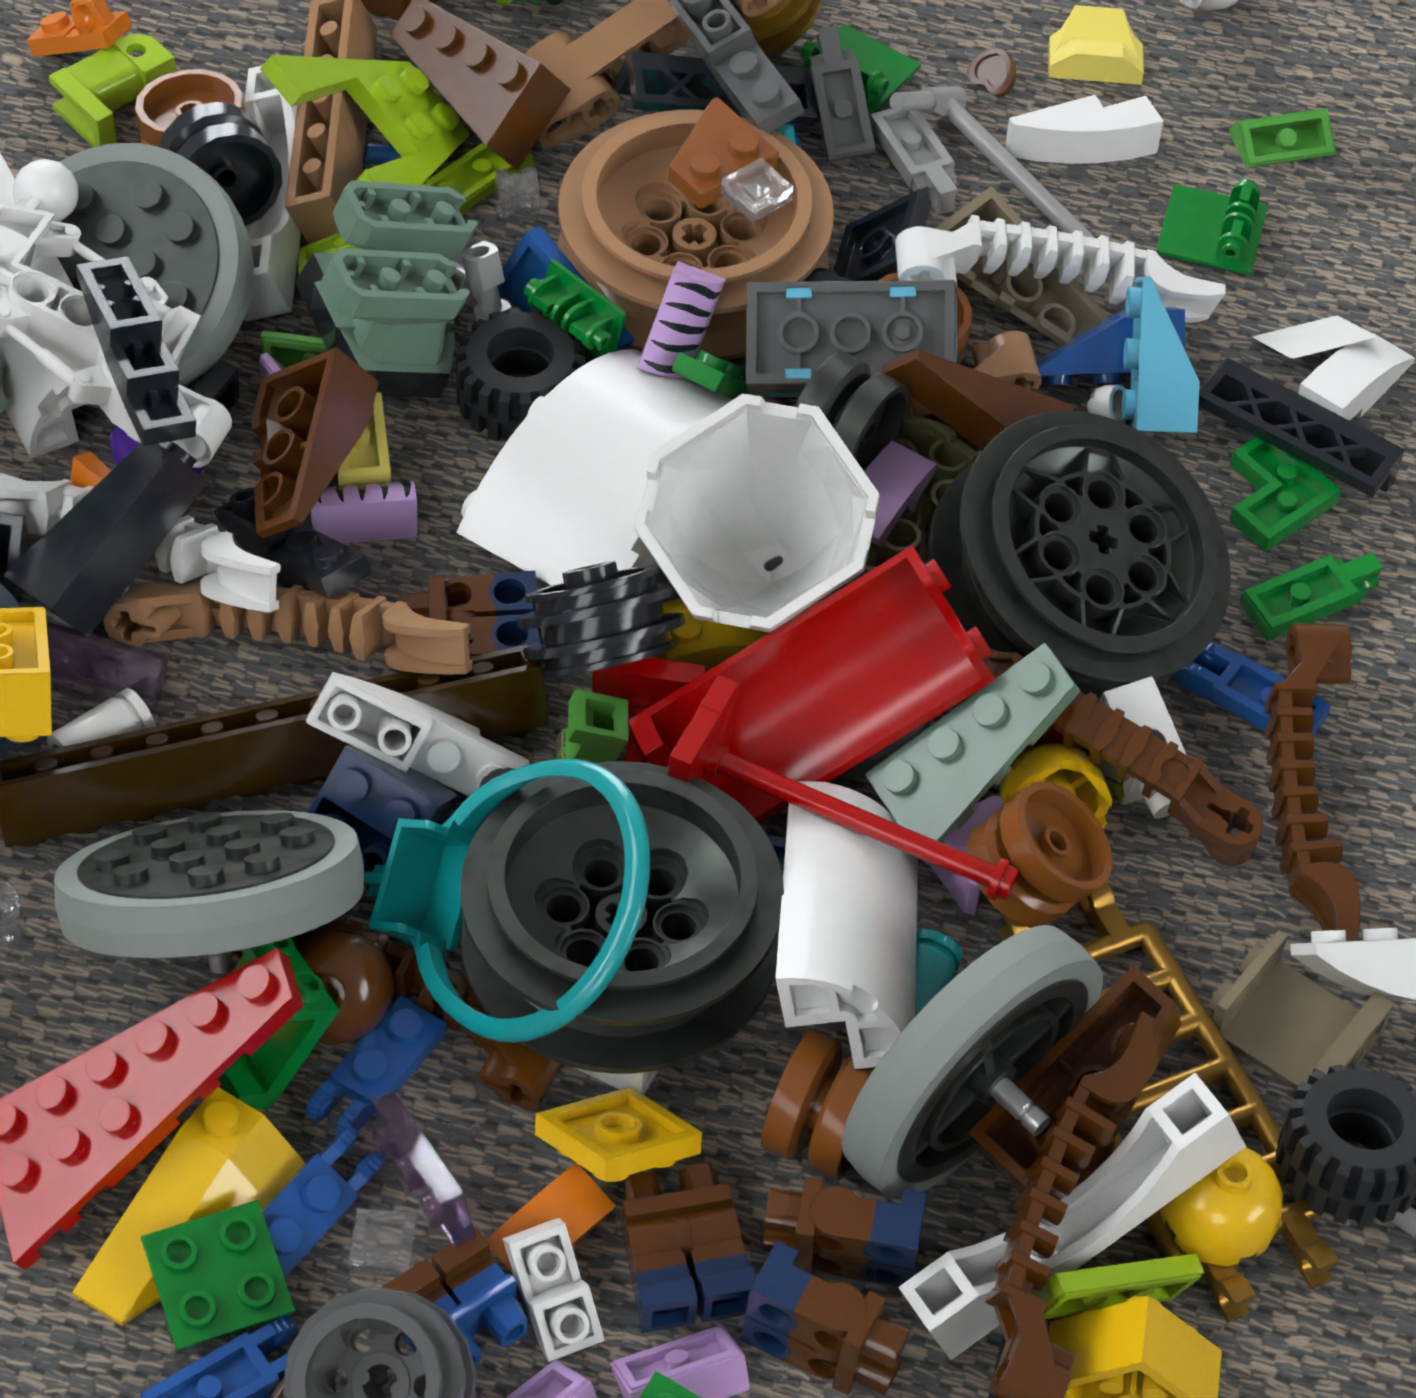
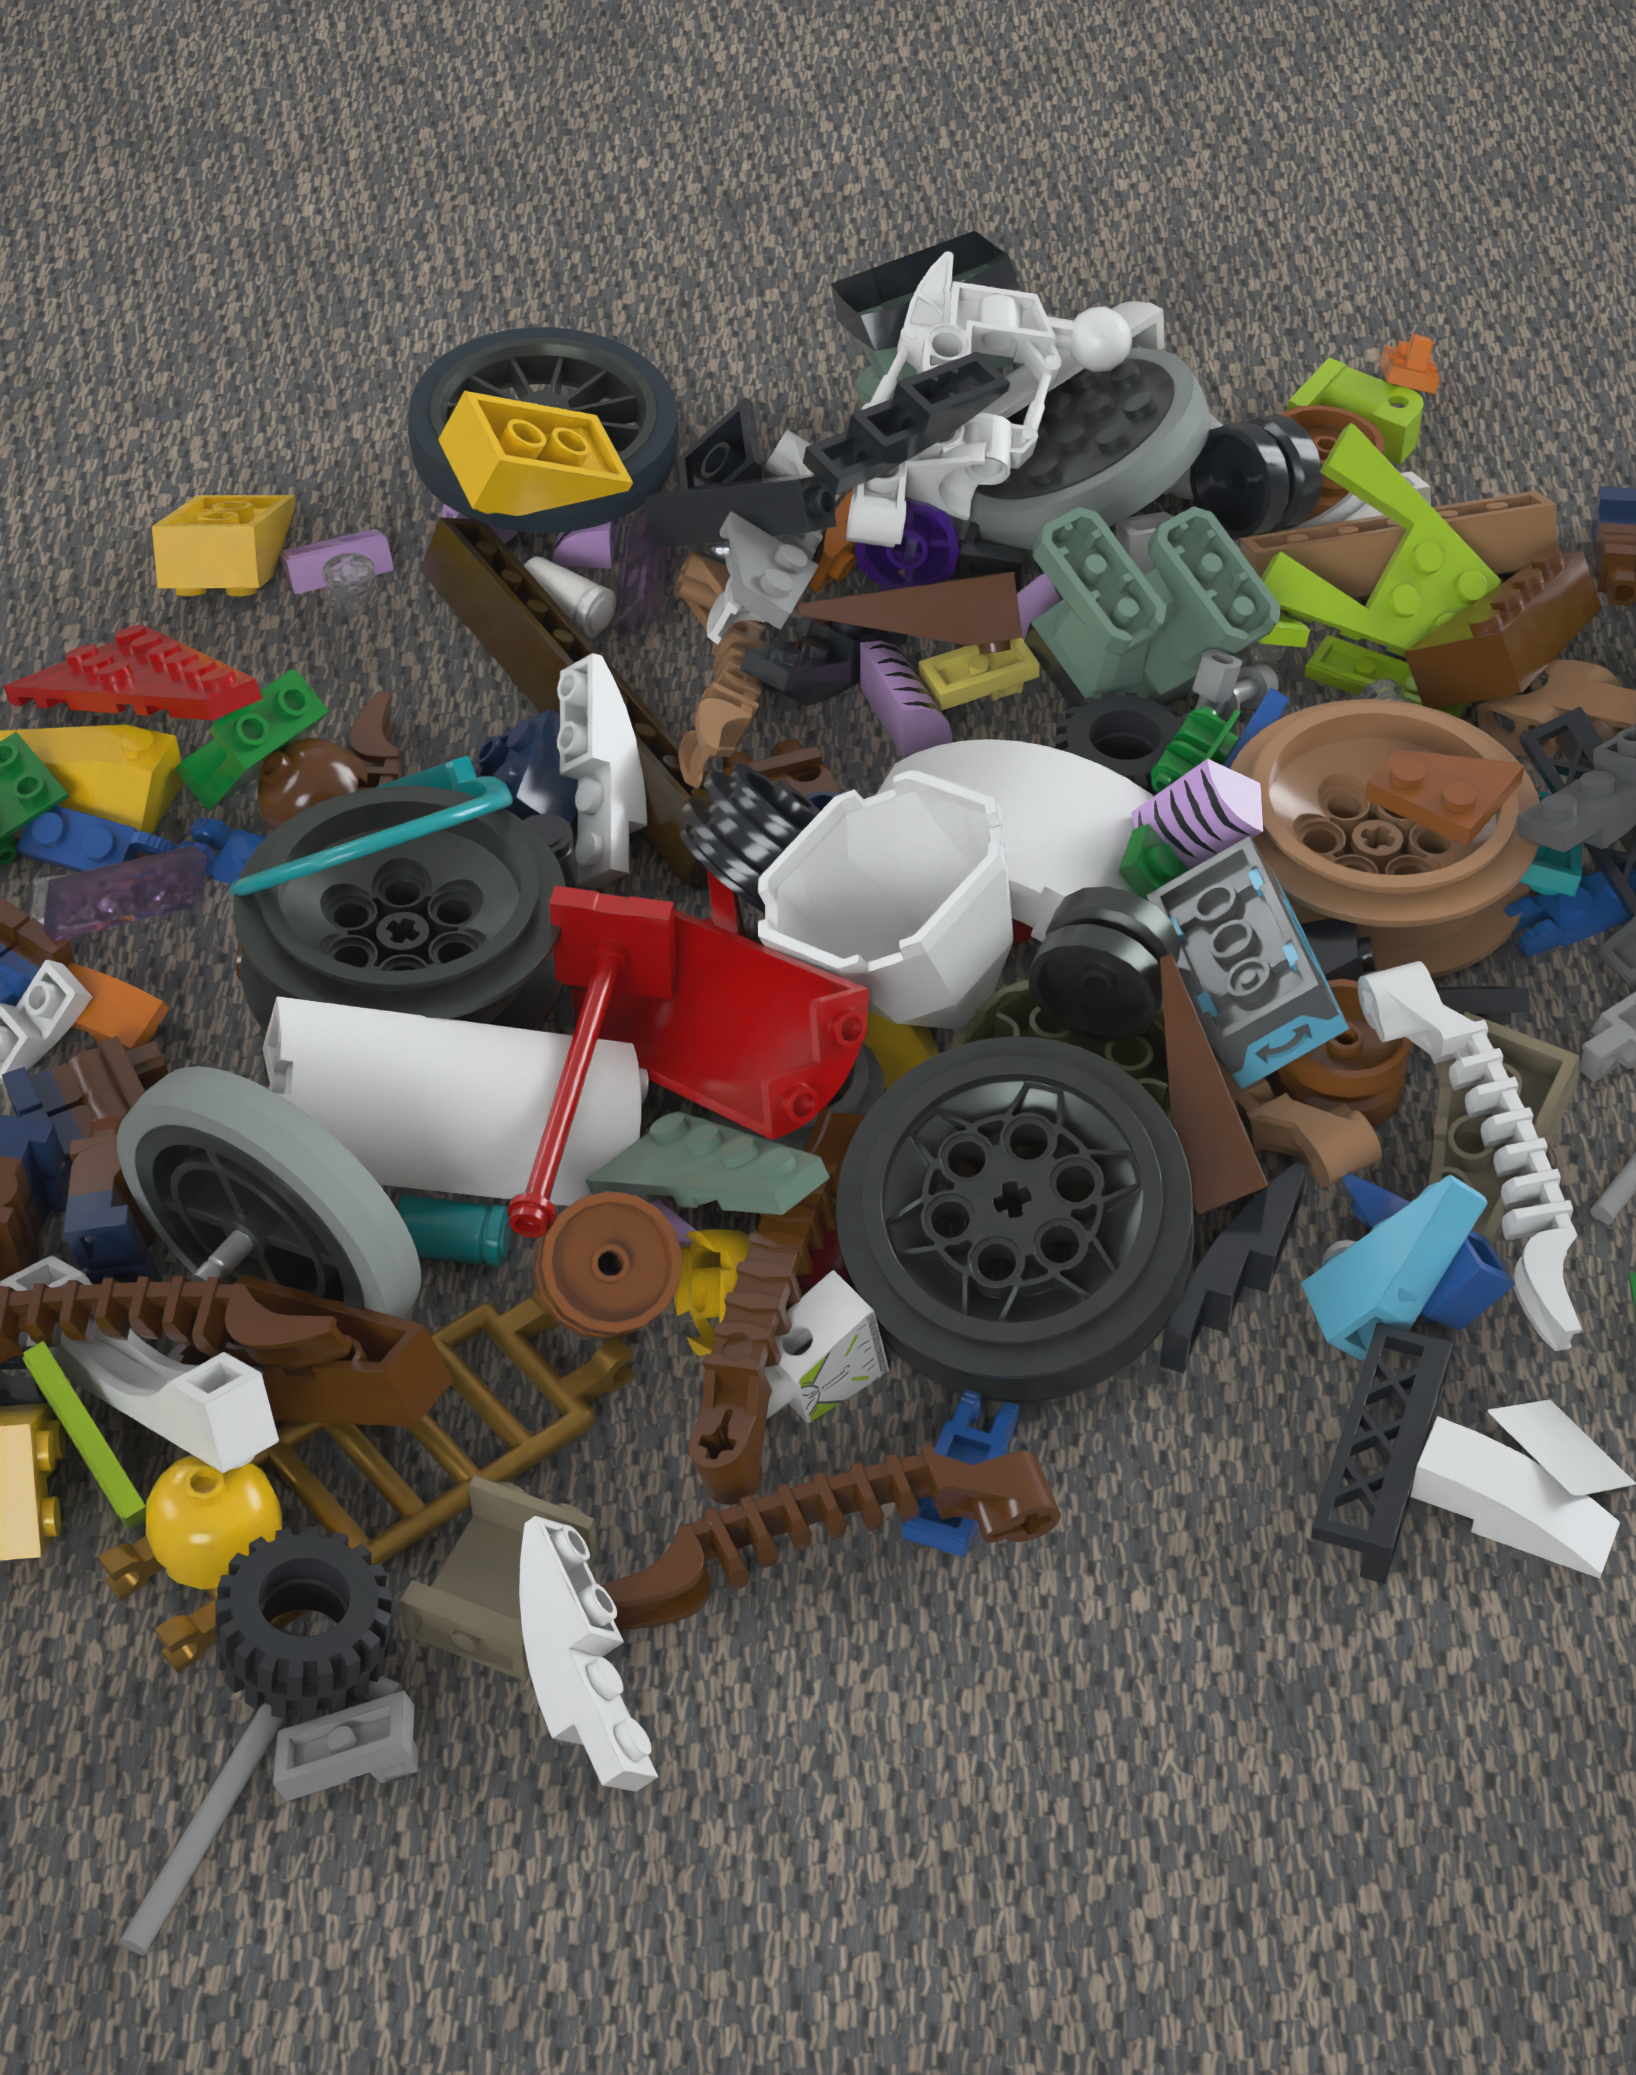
camera: 80 degrees right, 5 degrees down
(209, 884) = (363, 659): wheel -> none
(230, 533) = (764, 570): none -> light grey wing
(595, 728) = (659, 878): bright green leg -> none
(618, 1134) = (192, 1016): yellow plate -> none
(756, 190) = (1400, 823): clear plate -> none
(900, 480) = (1055, 1024): lavender slope -> none
(1286, 497) = (1278, 1462): green plate -> none
(1309, 593) = (1141, 1506): green hinge -> none

